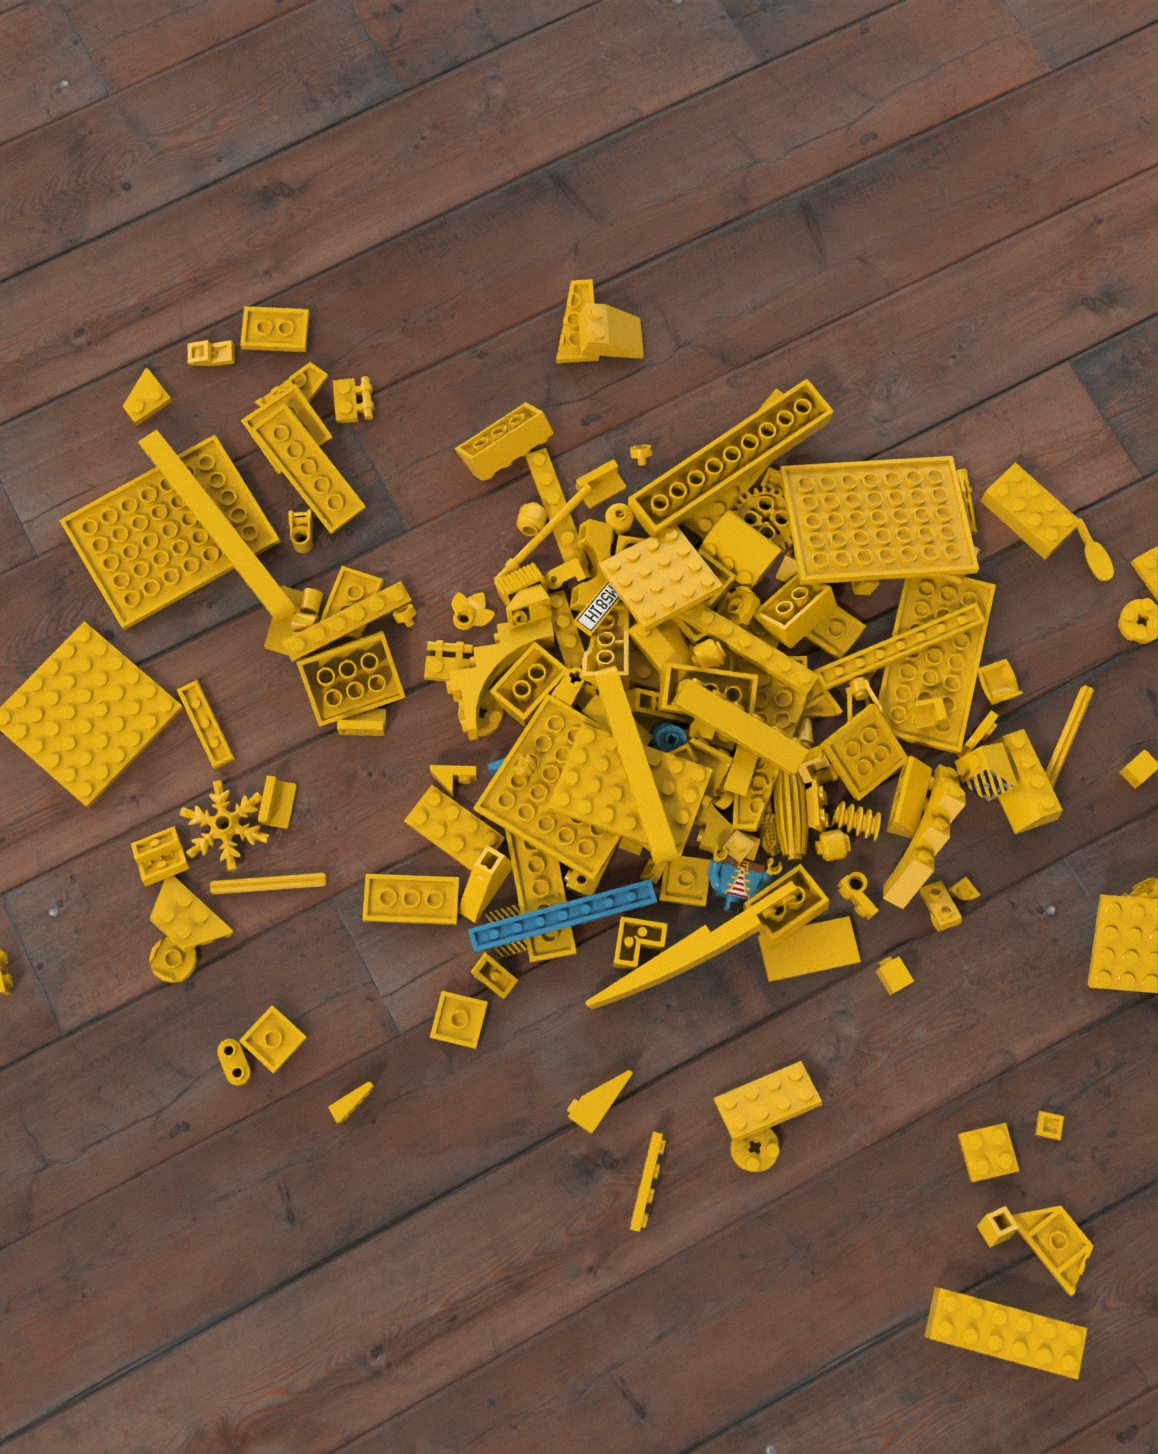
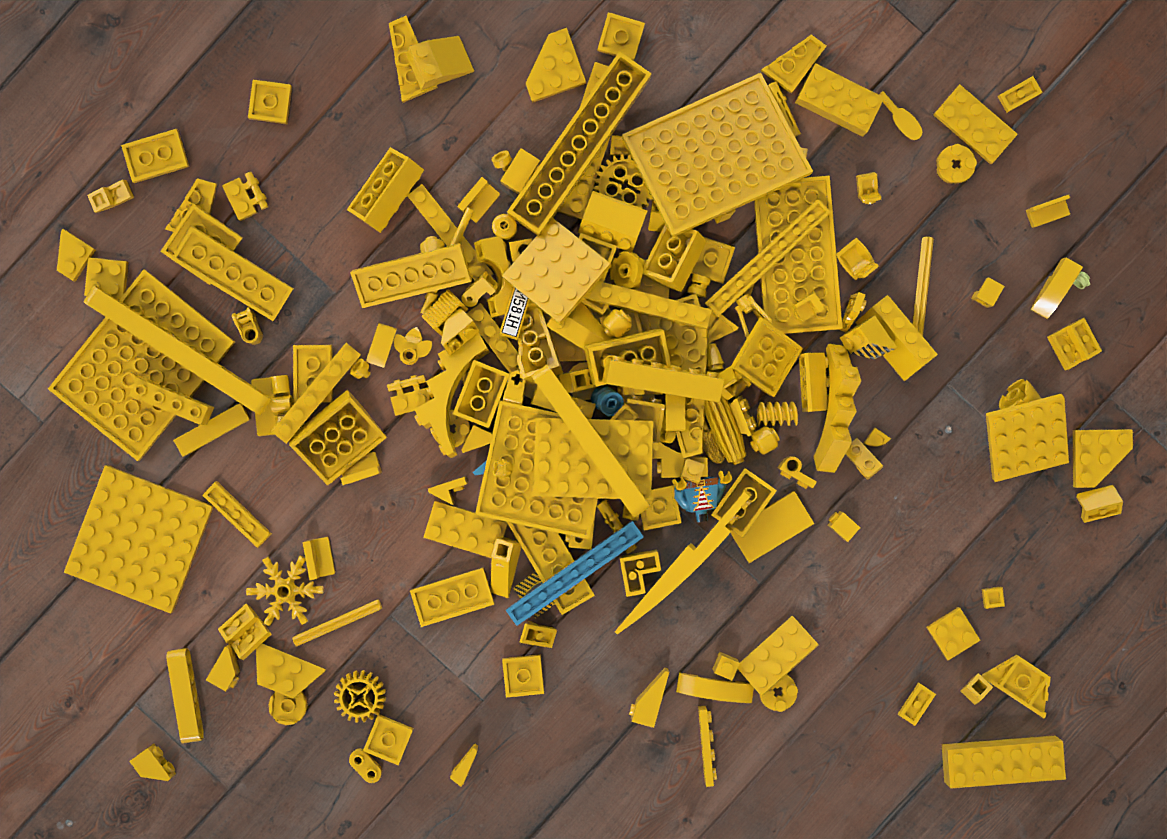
camera: 15 degrees left, 15 degrees up
(61, 905) = (185, 695): none -> yellow beam
(120, 890) = (225, 670): none -> yellow slope
(175, 428) = (107, 275): none -> yellow plate
(187, 574) = (171, 401): none -> yellow brick
(216, 624) = (214, 429): none -> yellow tile
(270, 971) = (354, 691): none -> yellow gear
(416, 316) = (270, 101): none -> yellow plate
(438, 597) = (381, 345): none -> yellow slope
(499, 533) = (411, 275): none -> yellow plate
(504, 732) = (477, 438): none -> yellow slope
(627, 878) = (612, 520): none -> yellow pin
(654, 466) = (520, 171): none -> yellow brick
(681, 1116) = (714, 689): none -> yellow slope
(702, 1091) = (726, 666): none -> yellow brick
(731, 382) = (555, 68): none -> yellow plate
(814, 650) = (699, 289): none -> yellow wheel
(815, 367) = (620, 35): none -> yellow plate
(918, 1222) = (916, 704): none -> yellow plate
(992, 461) = (794, 64): none -> yellow wing
(1035, 612) = (868, 188): none -> yellow bracket

